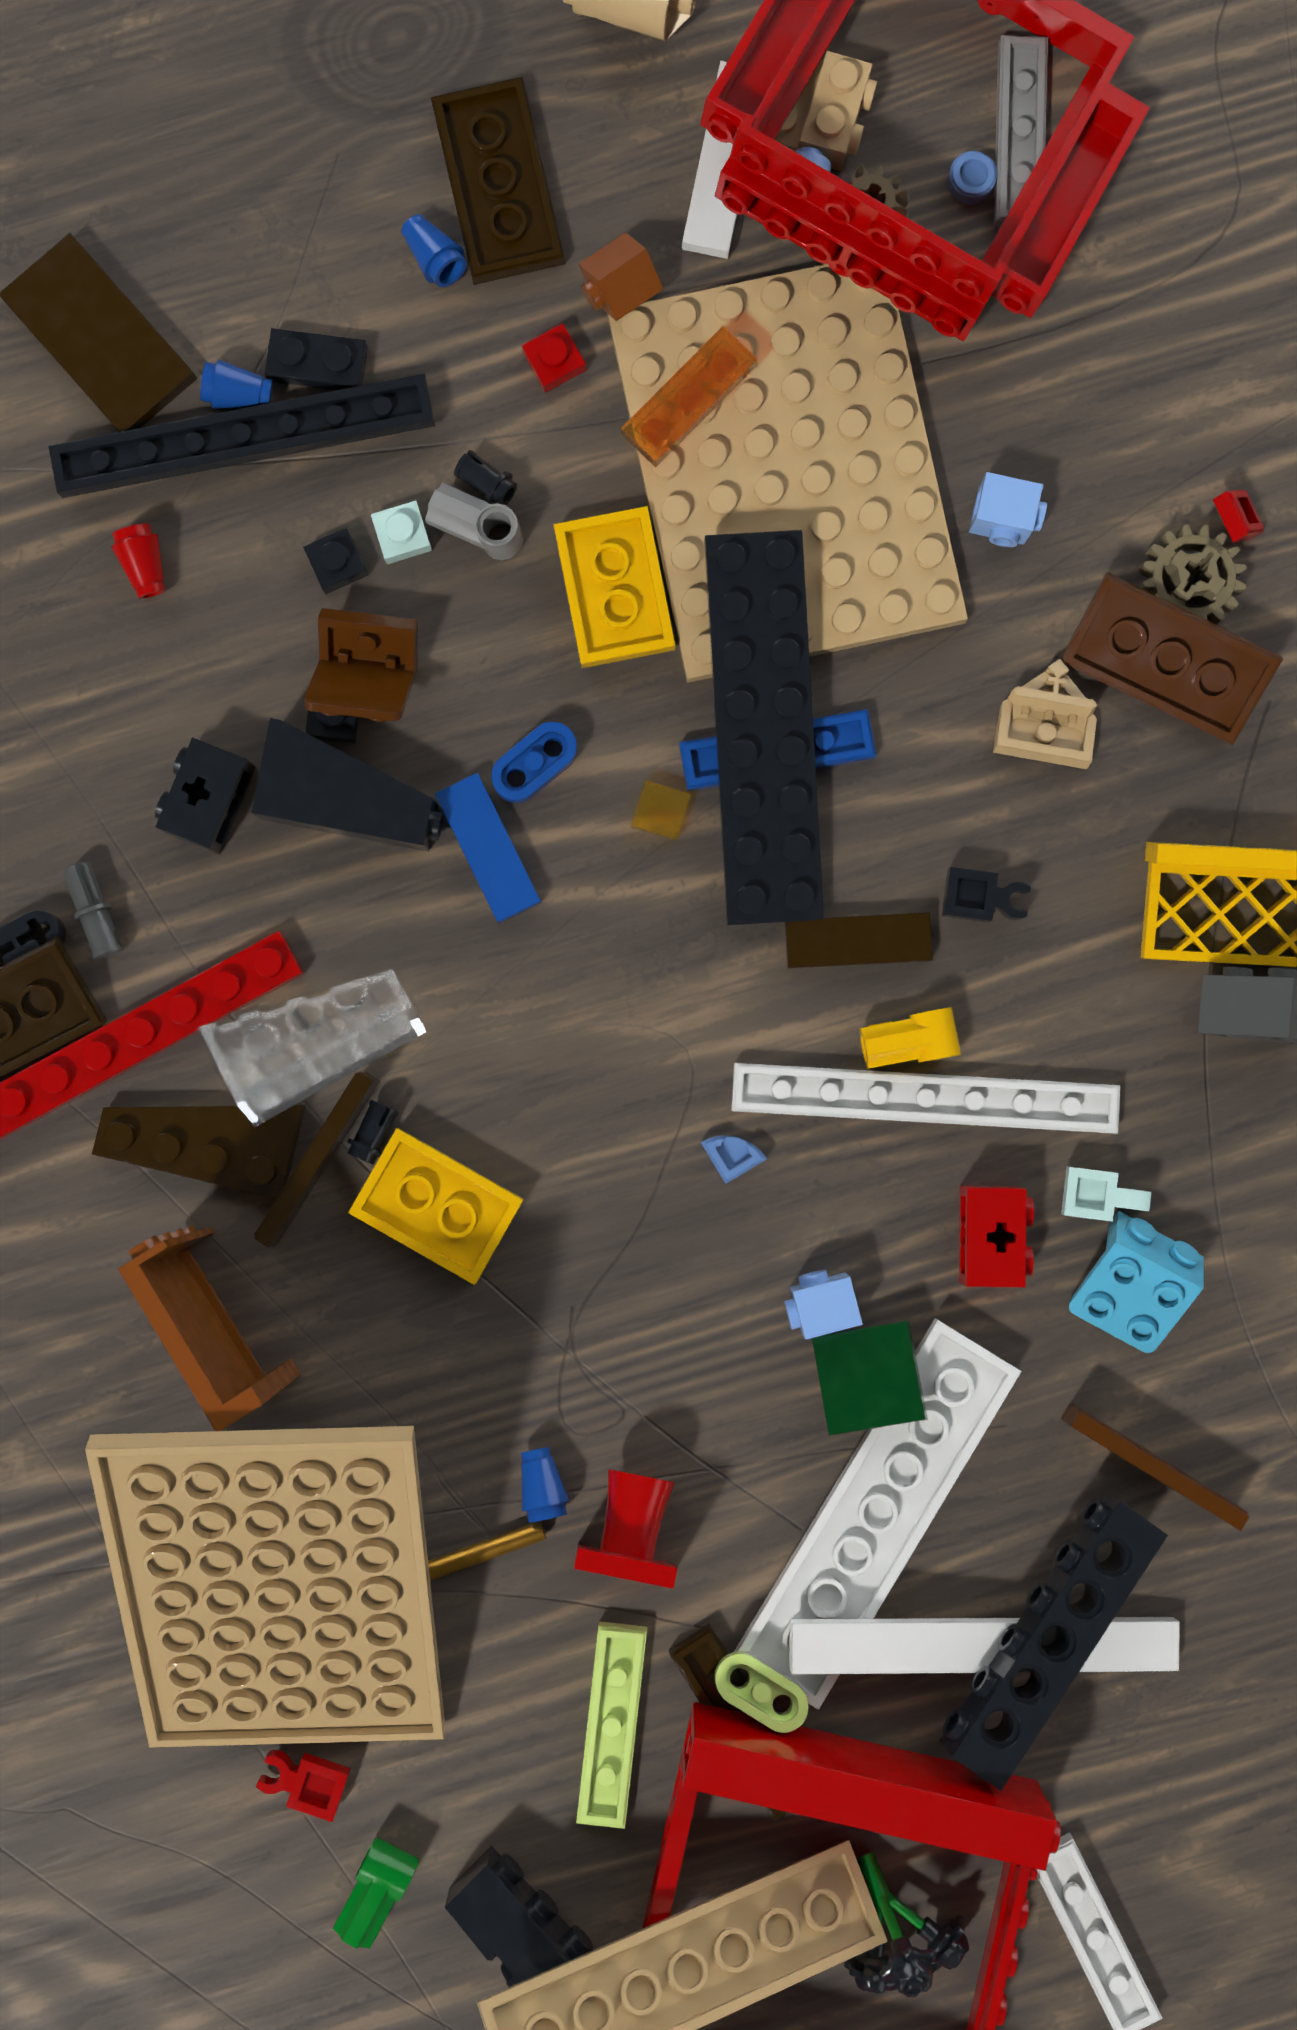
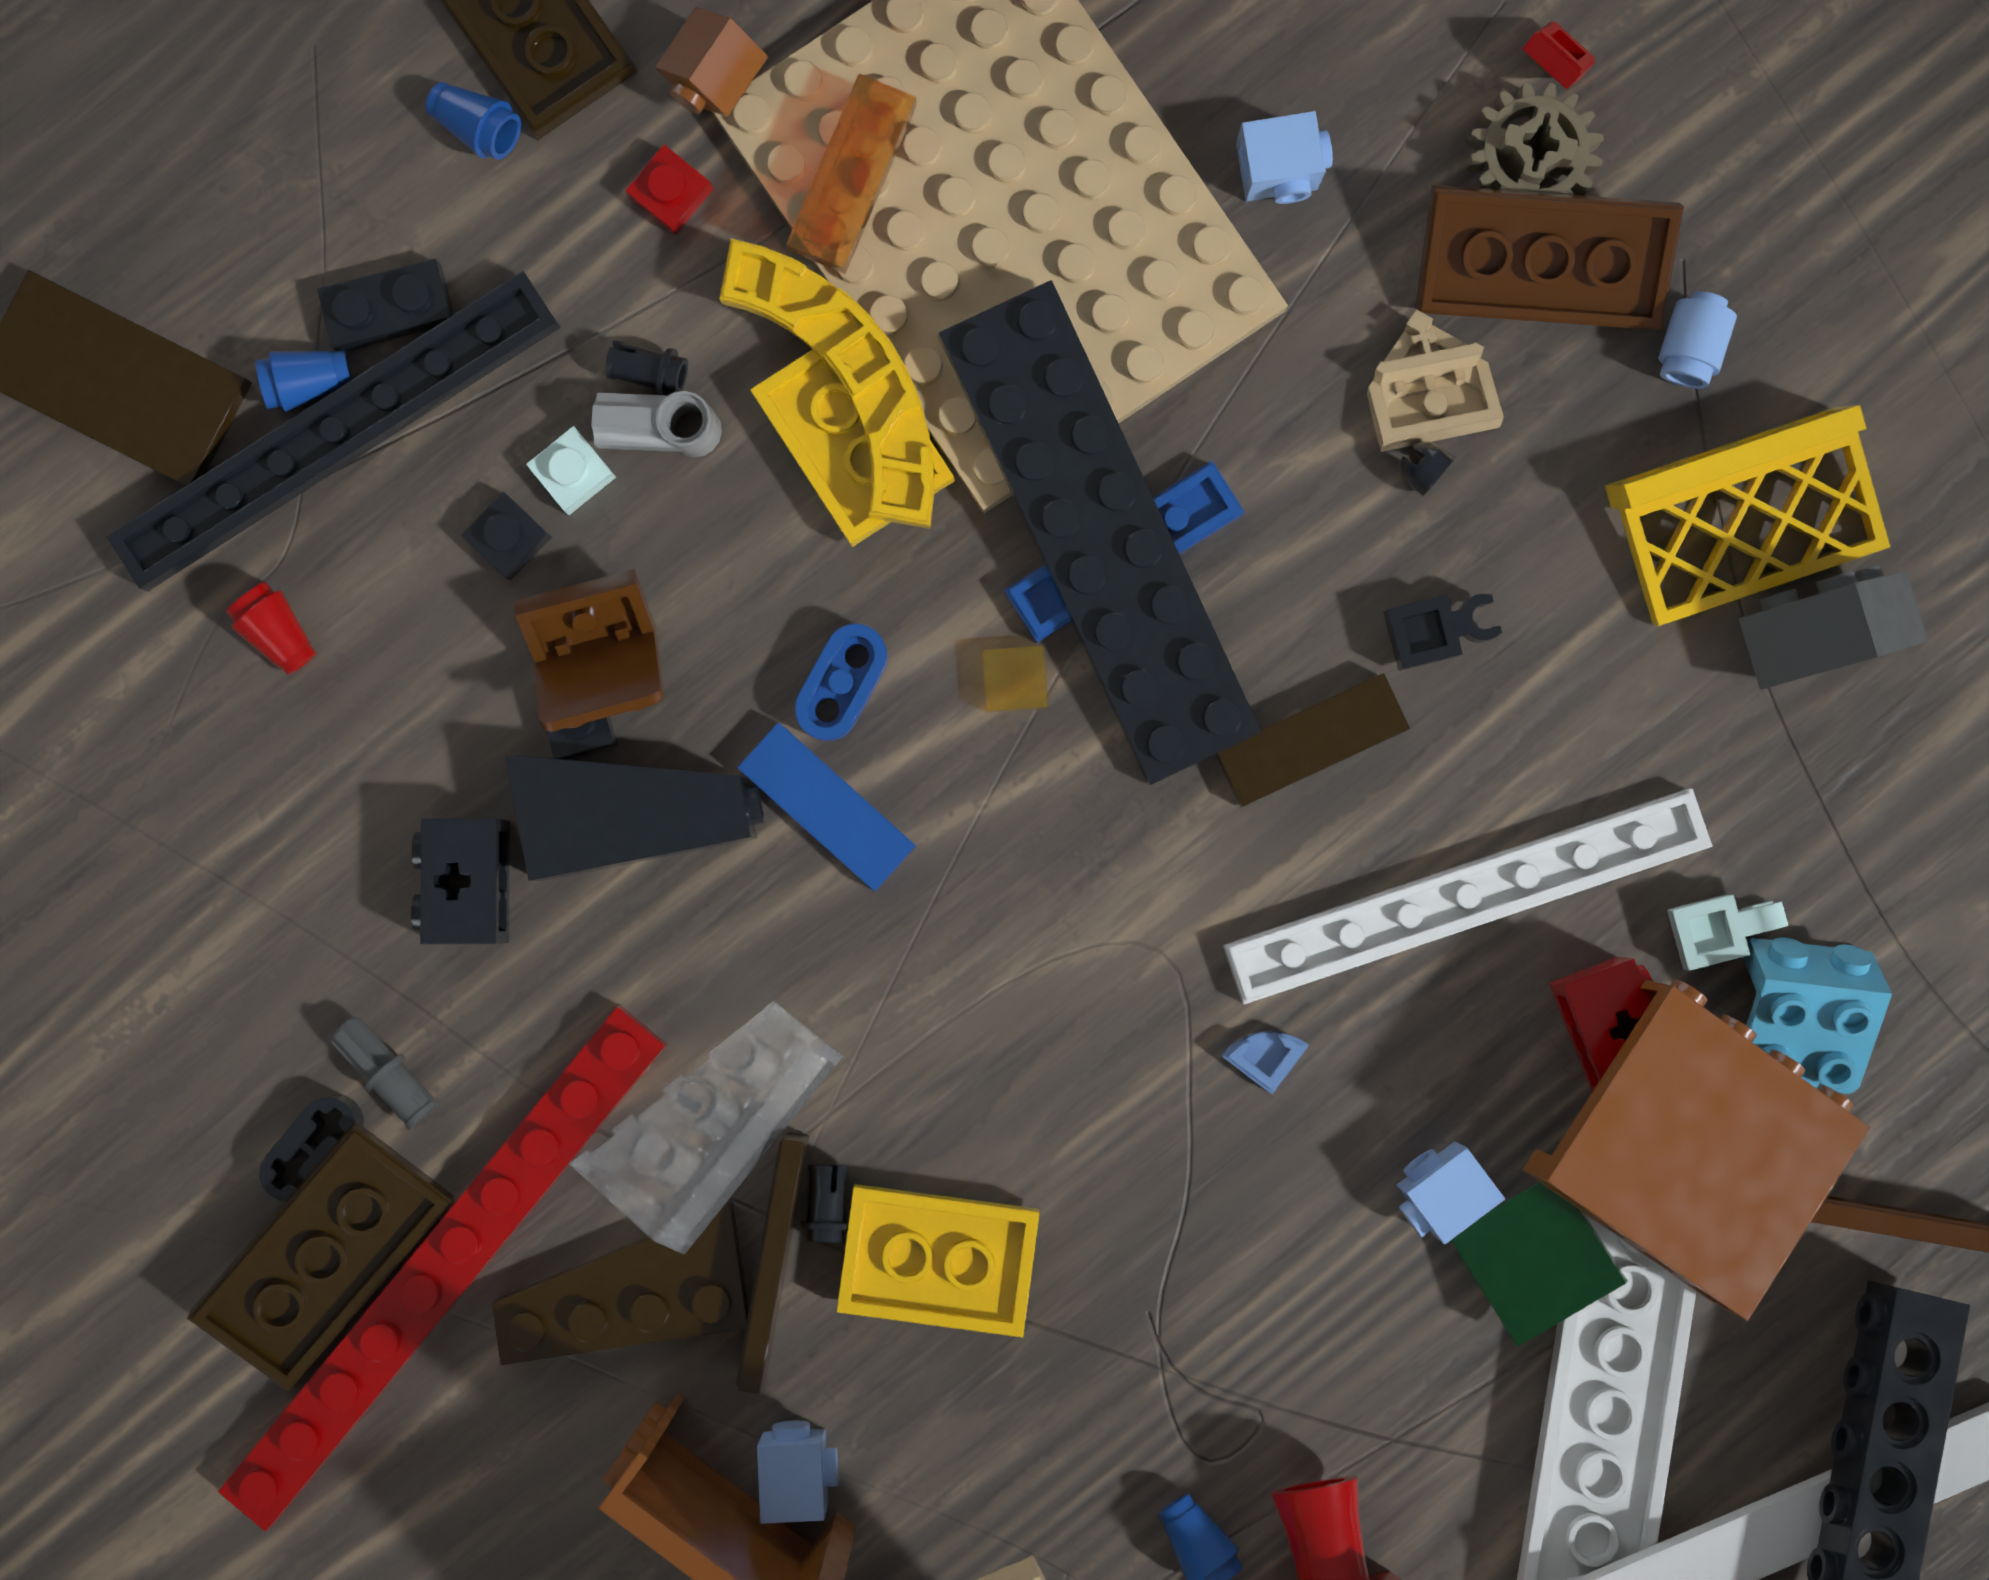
camera: 20 degrees left, 0 degrees up
(271, 1316) = (795, 1473): none -> light blue brick
(642, 533) = (861, 359): none -> yellow tile
(922, 1037) = (1434, 826): yellow piece -> none
(1019, 1344) = (1703, 1149): none -> dark orange panel
(1023, 777) = (1429, 469): none -> black hinge
(1255, 761) = (1696, 340): none -> light blue brick

